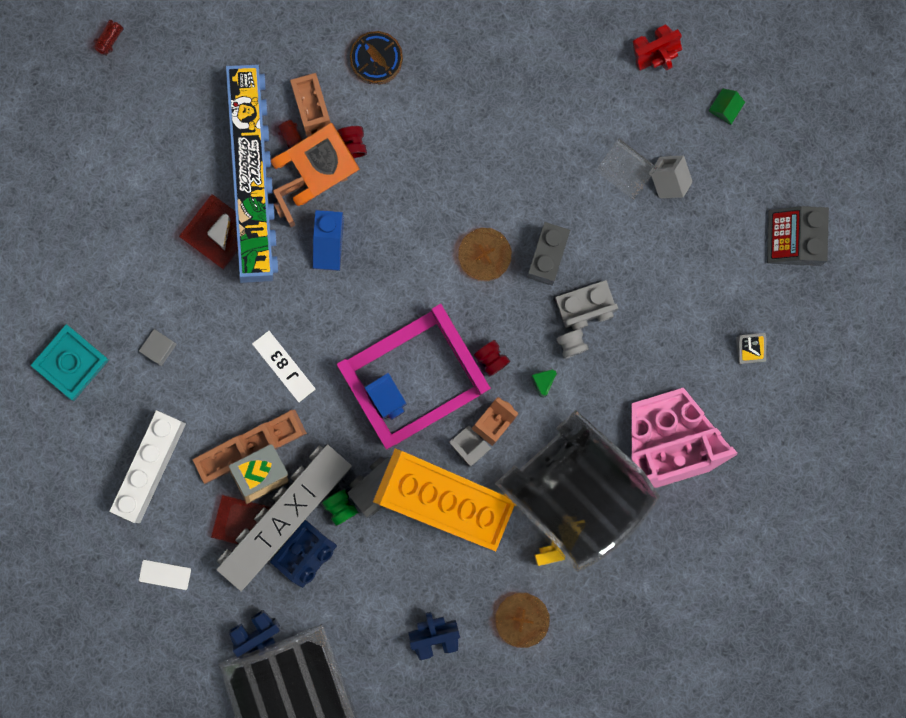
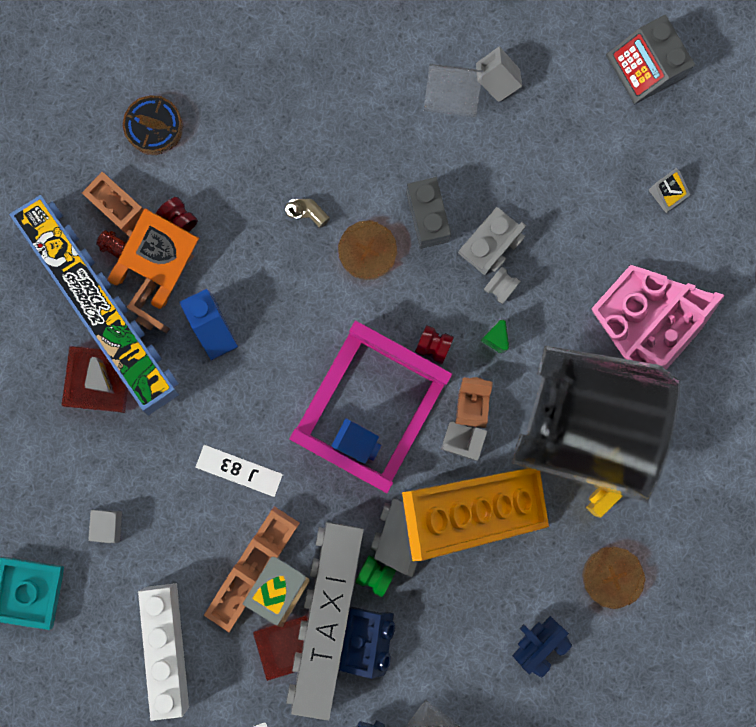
camera: 30 degrees left, 0 degrees up
(457, 194) = (307, 209): none -> dark tan arm

